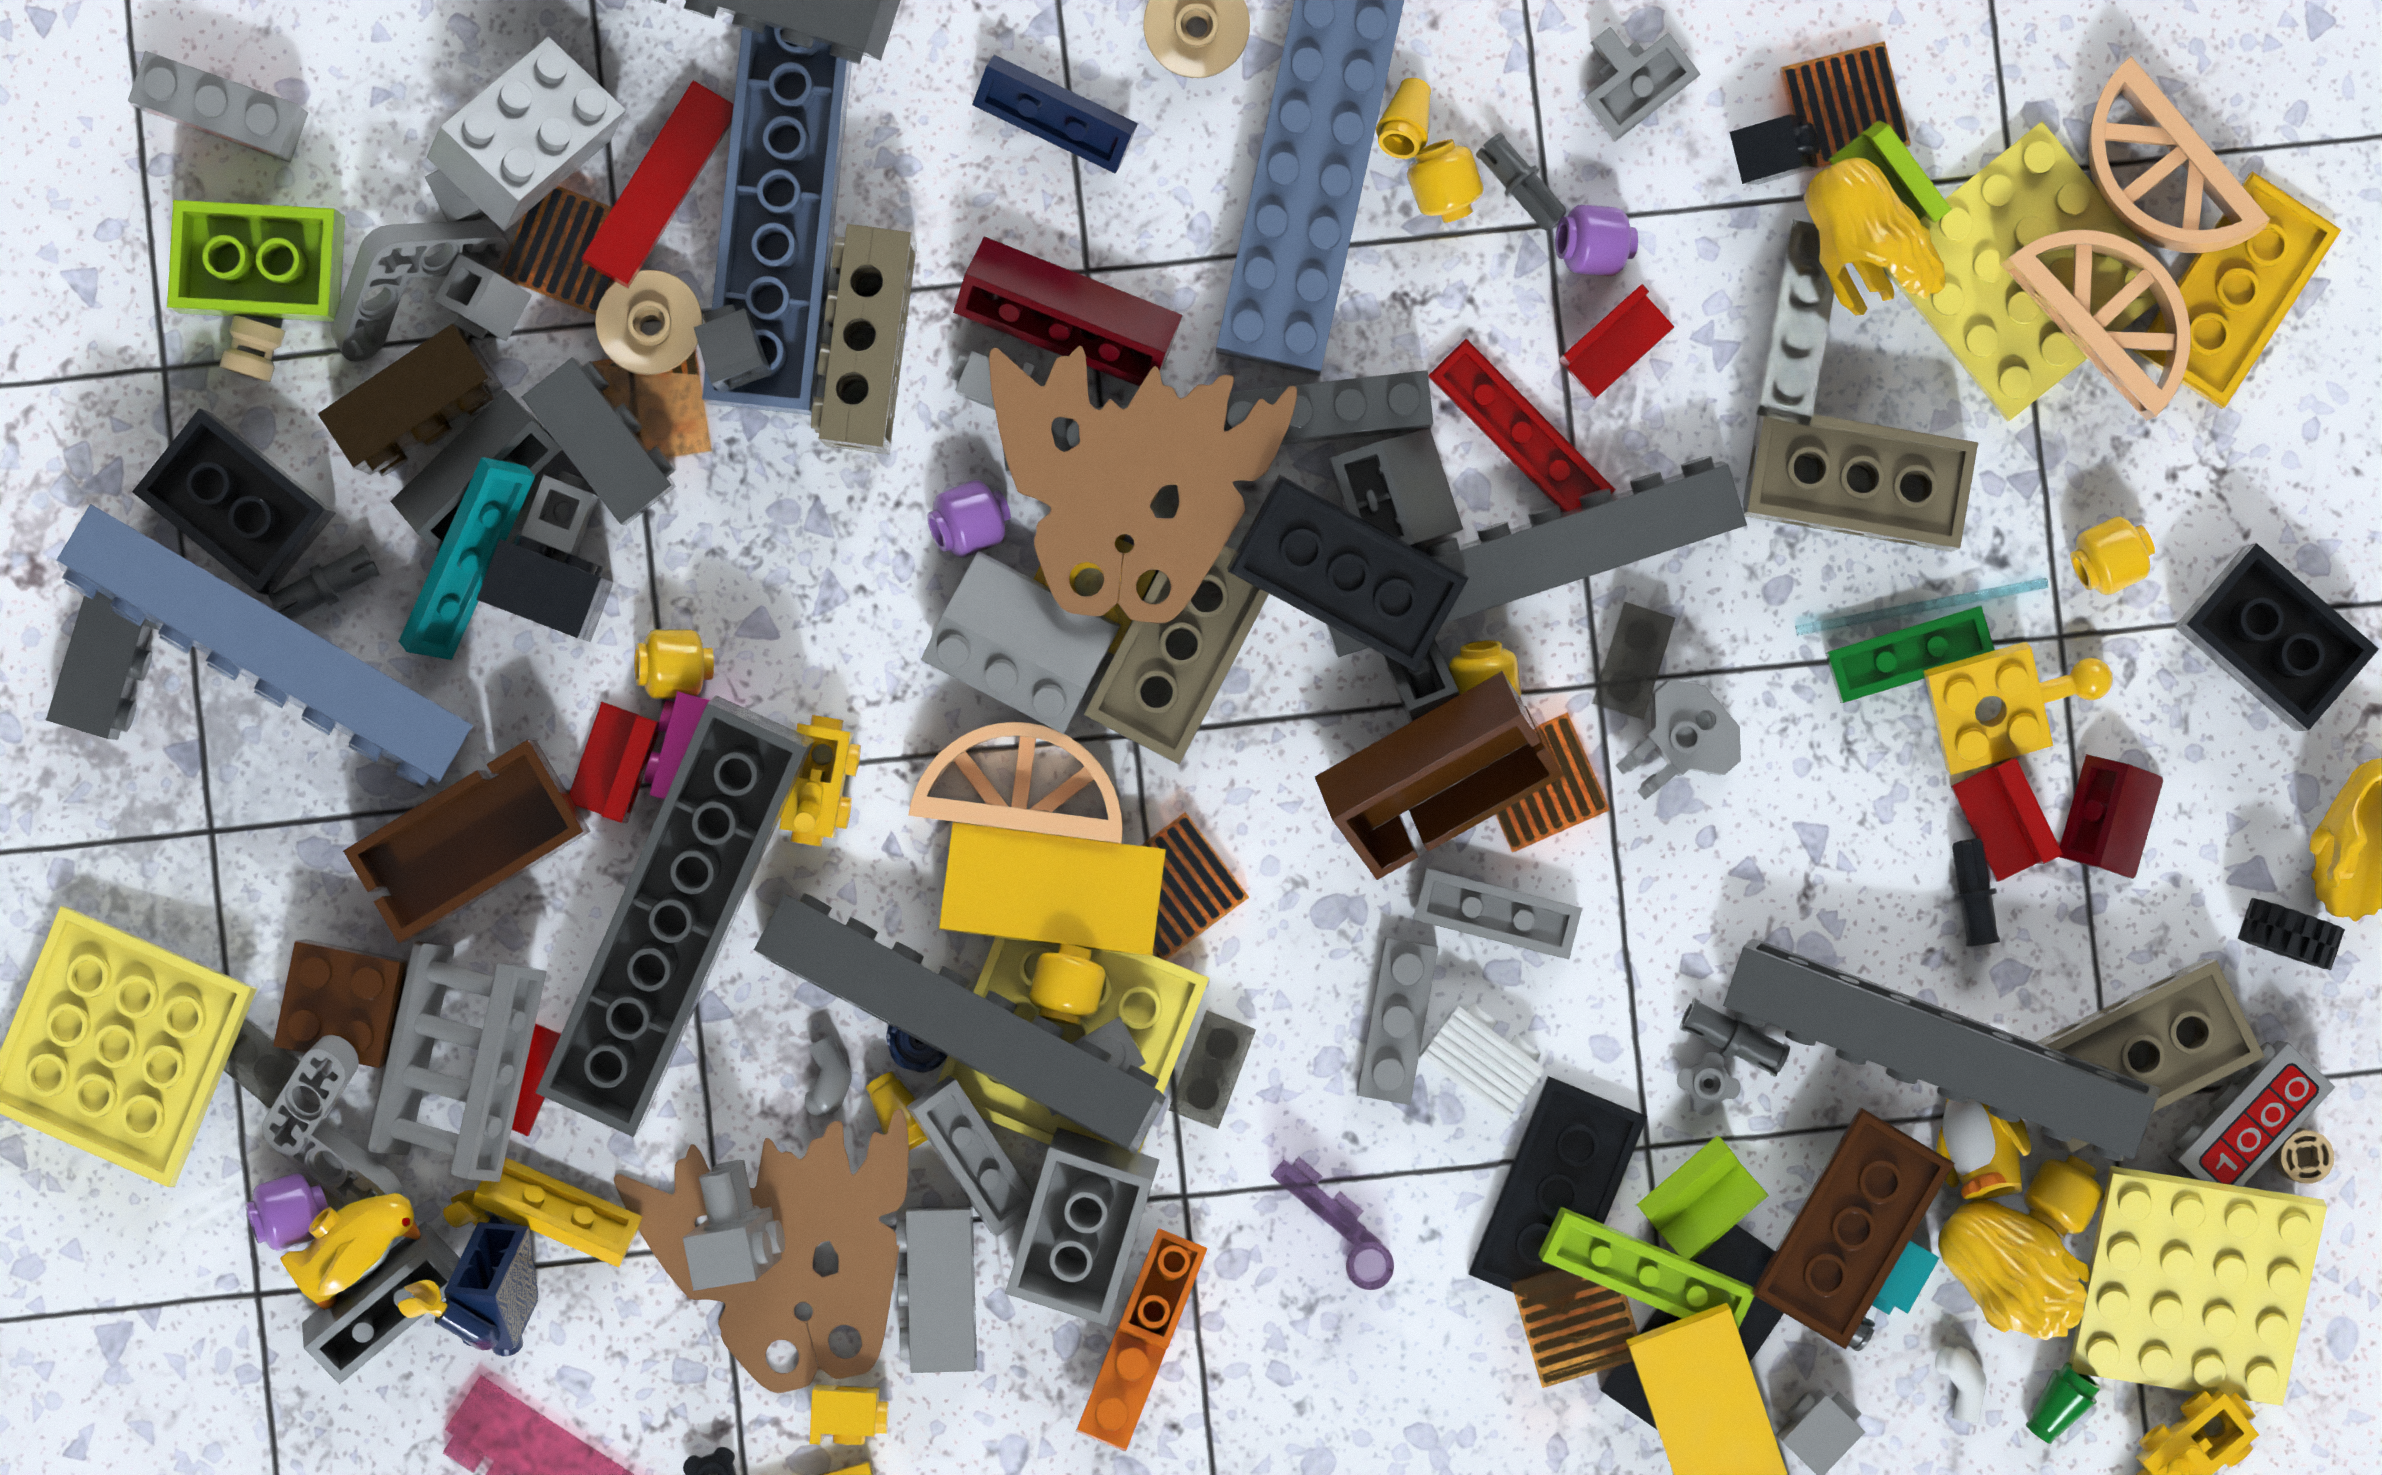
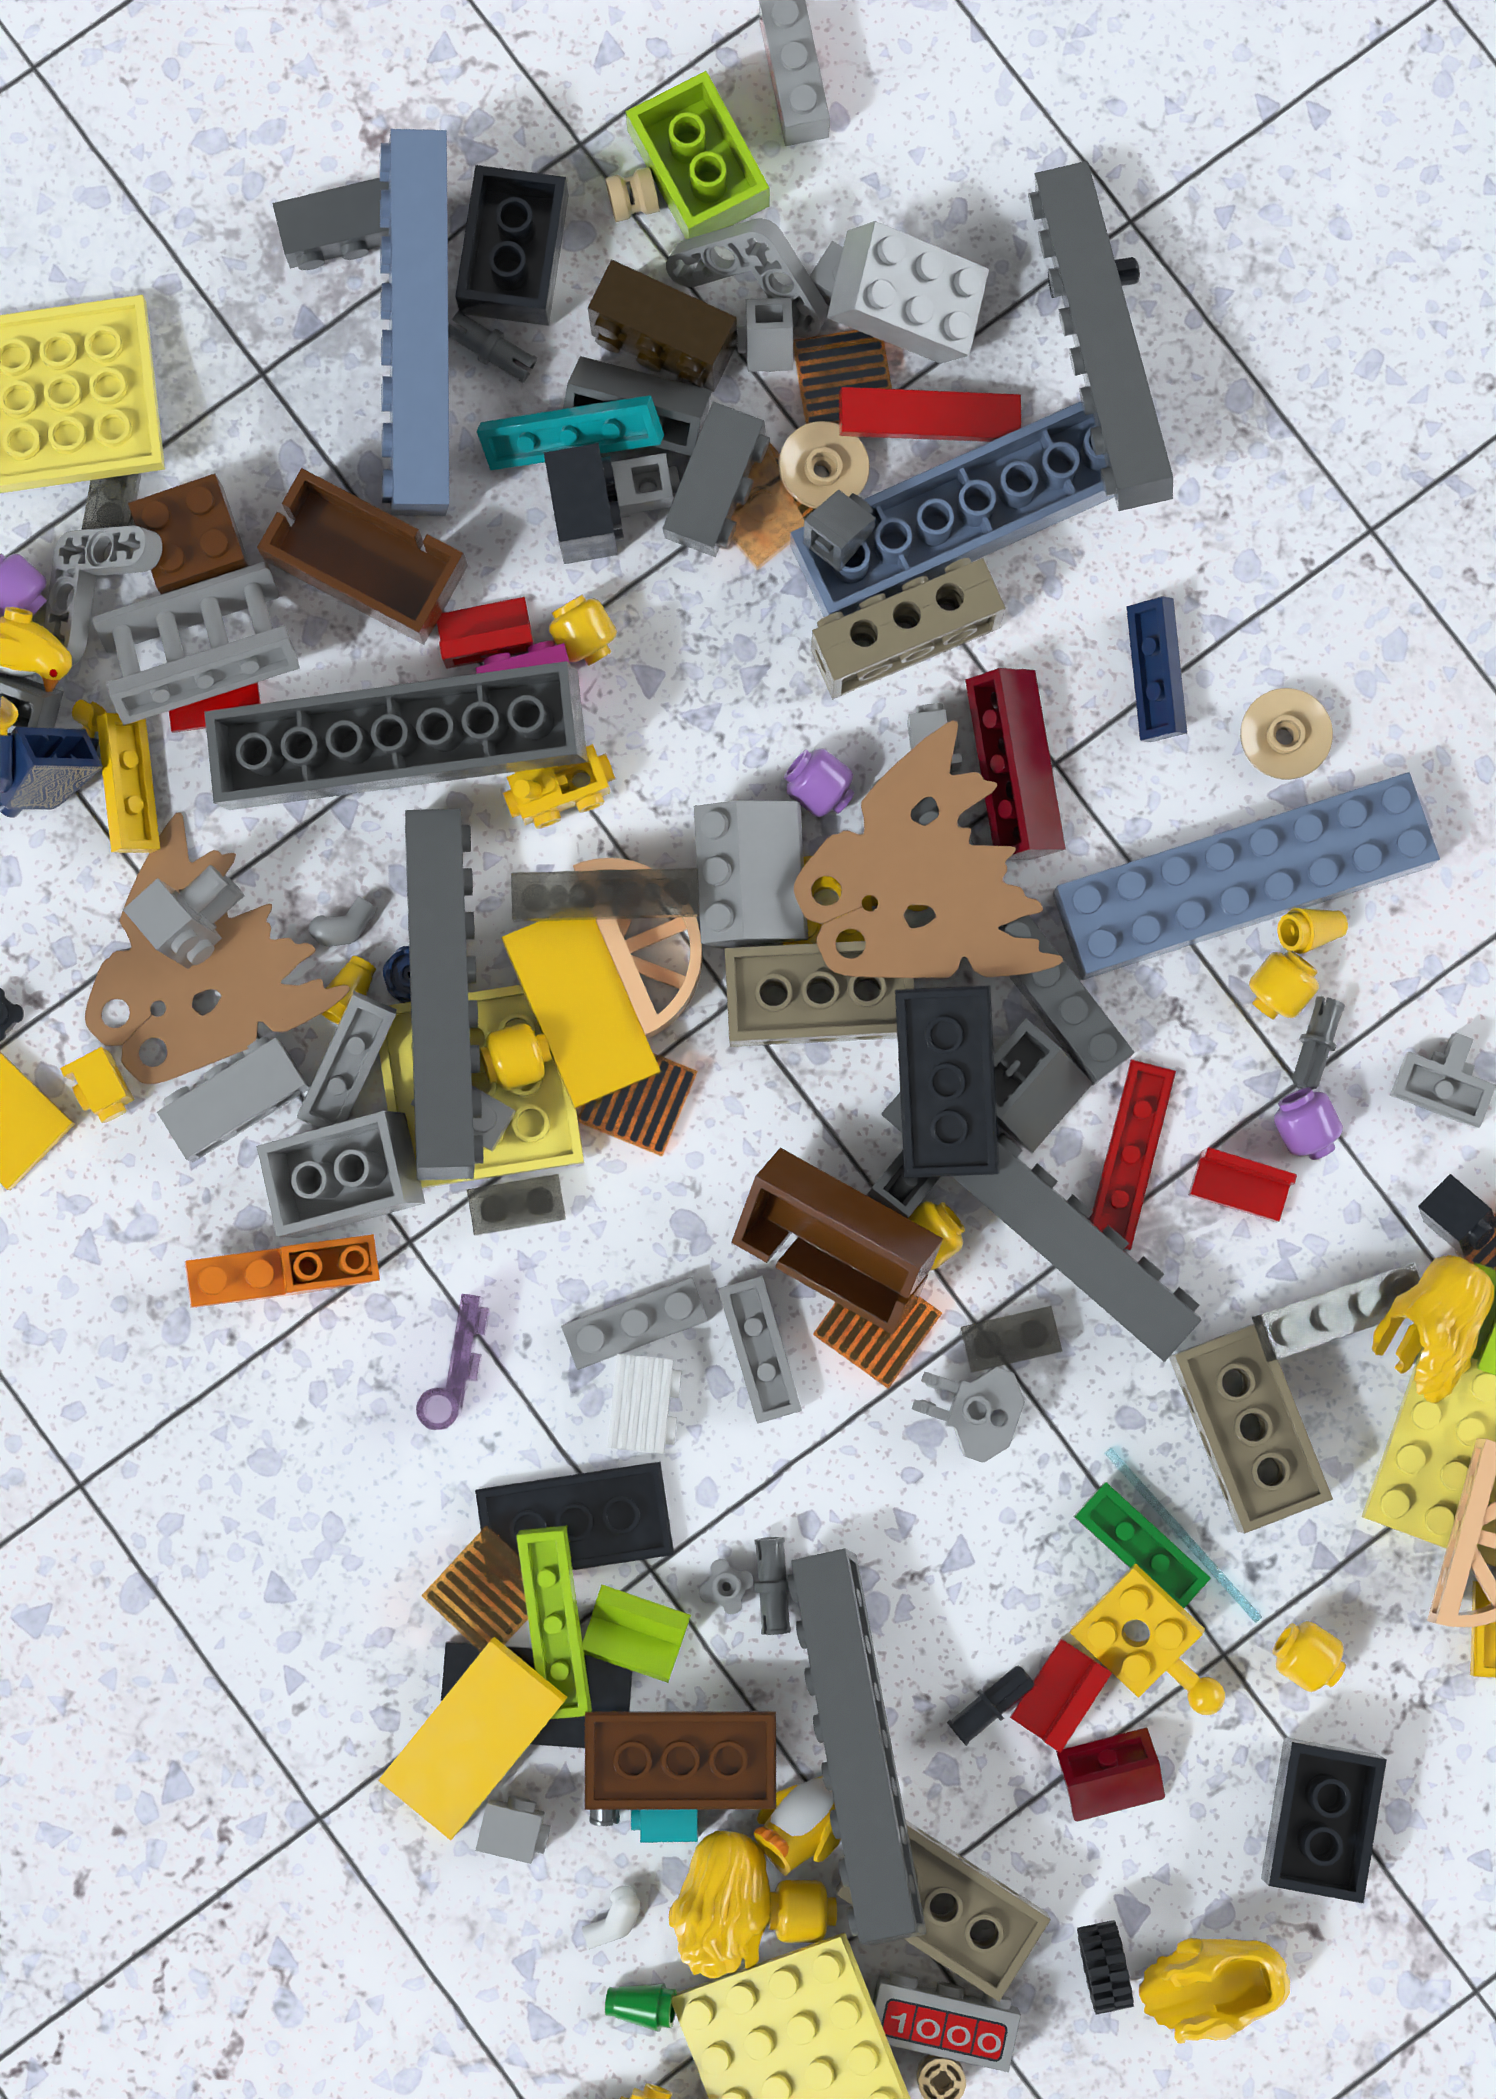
camera: 55 degrees right, 5 degrees down
(959, 801) = (605, 894): none -> clear smoke plate

